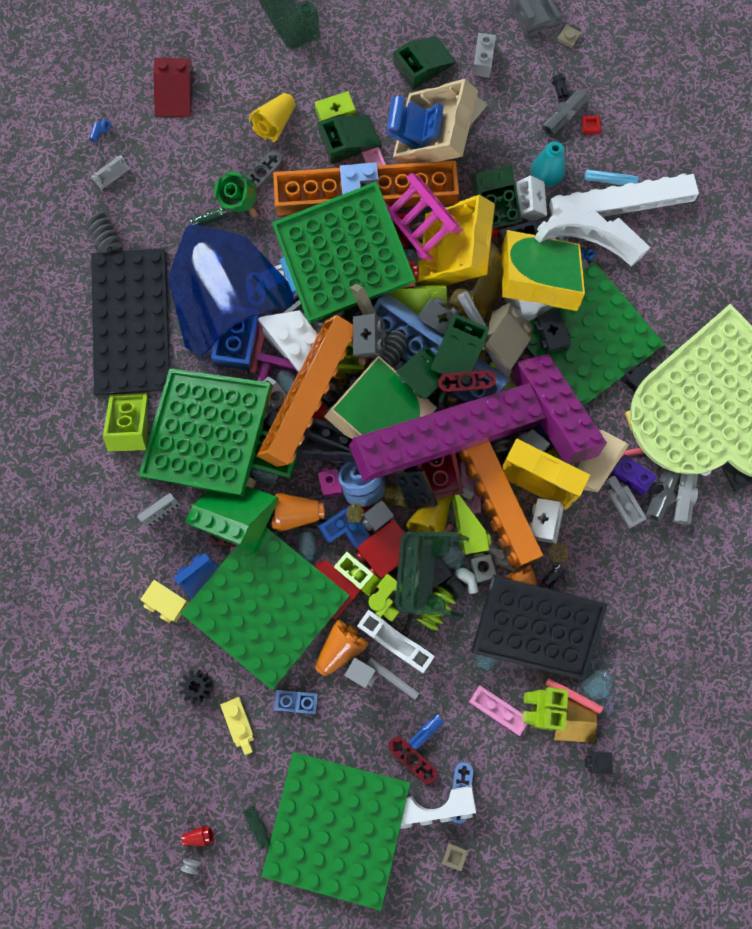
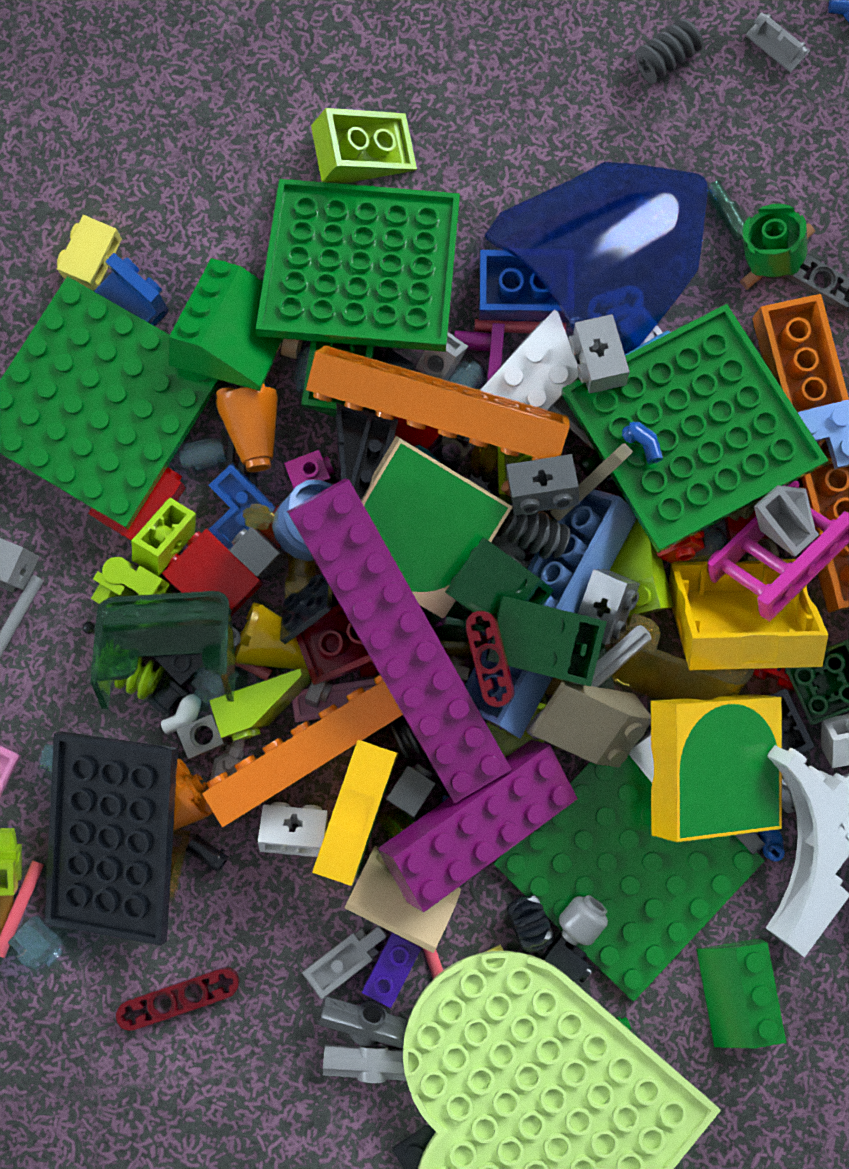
camera: 80 degrees right, 5 degrees up
(129, 321) = (531, 120): black plate -> none
(159, 510) = (224, 216): light grey tile -> none
(282, 293) = (601, 339): none -> light grey brick
(339, 648) = (48, 528): orange cone -> none
(348, 276) = (647, 438): none -> blue arm
(395, 641) = (54, 638): white arch -> none
(406, 209) = (787, 518): none -> light grey slope
(554, 322) = (634, 804): black brick -> none
(558, 552) = (246, 856): clear yellow plate -> none
(616, 392) = (530, 923): none -> black gear
(618, 361) = (583, 920): none -> light grey head
(640, 604) = (180, 1003): none -> dark red beam
(666, 285) = (741, 995): none -> green slope

